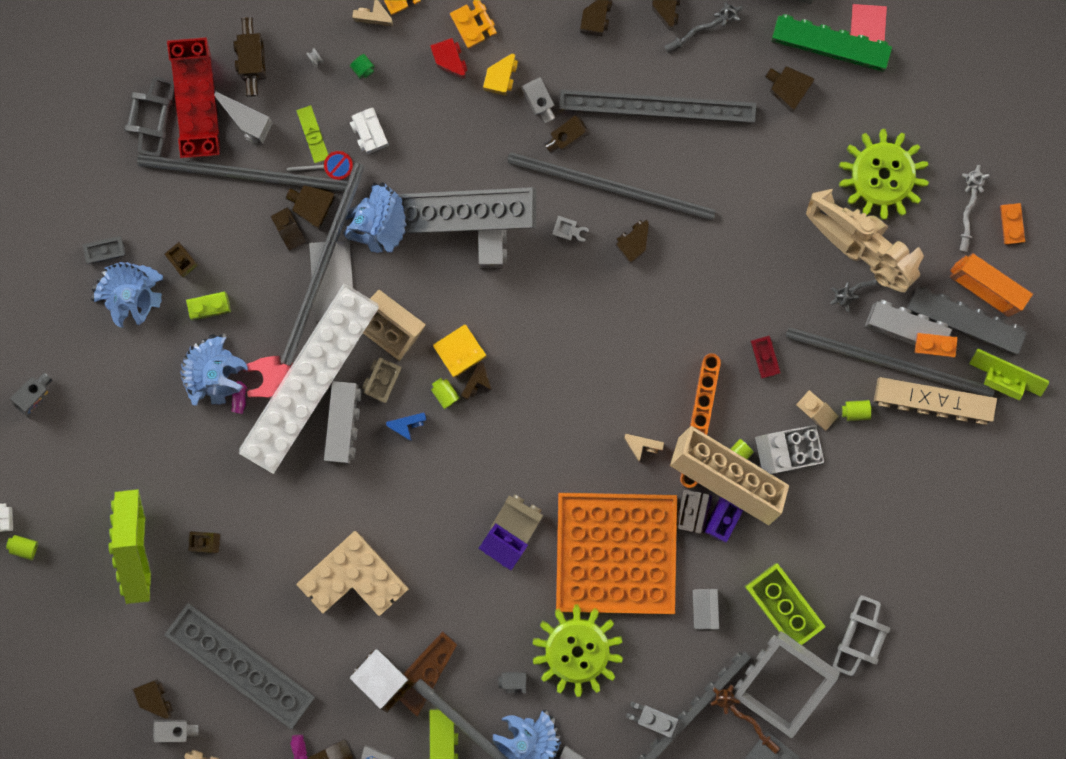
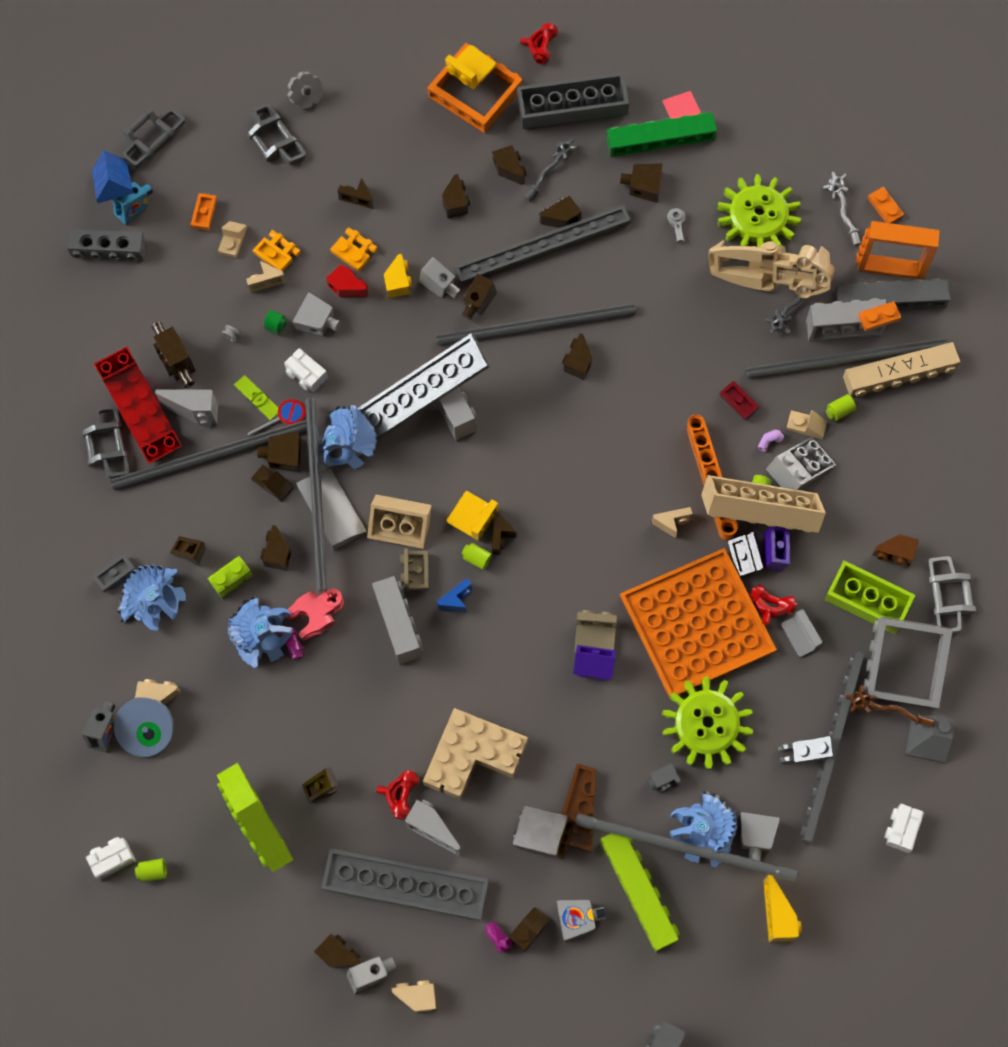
camera: 25 degrees left, 15 degrees down
(69, 413) = (143, 726): none -> sand blue tile
(92, 387) = (161, 692): none -> tan slope
(263, 301) = (277, 551): none -> dark brown slope
(283, 575) = (407, 782): none -> red piece
(285, 627) = (427, 823): none -> light grey slope
(308, 378) = (349, 593): white brick -> none
(403, 79) = (315, 316): none -> light grey torso
(567, 228) = (515, 373): light grey plate -> none
(687, 556) = (785, 604): none -> red piece
(692, 84) = (561, 213): none -> dark brown slope
(775, 406) = (774, 435): none -> lavender arm
(801, 140) = (676, 218): none -> light grey plate
(837, 573) = (898, 549): none -> reddish brown slope
(1007, 377) = (950, 323): lime bracket -> none

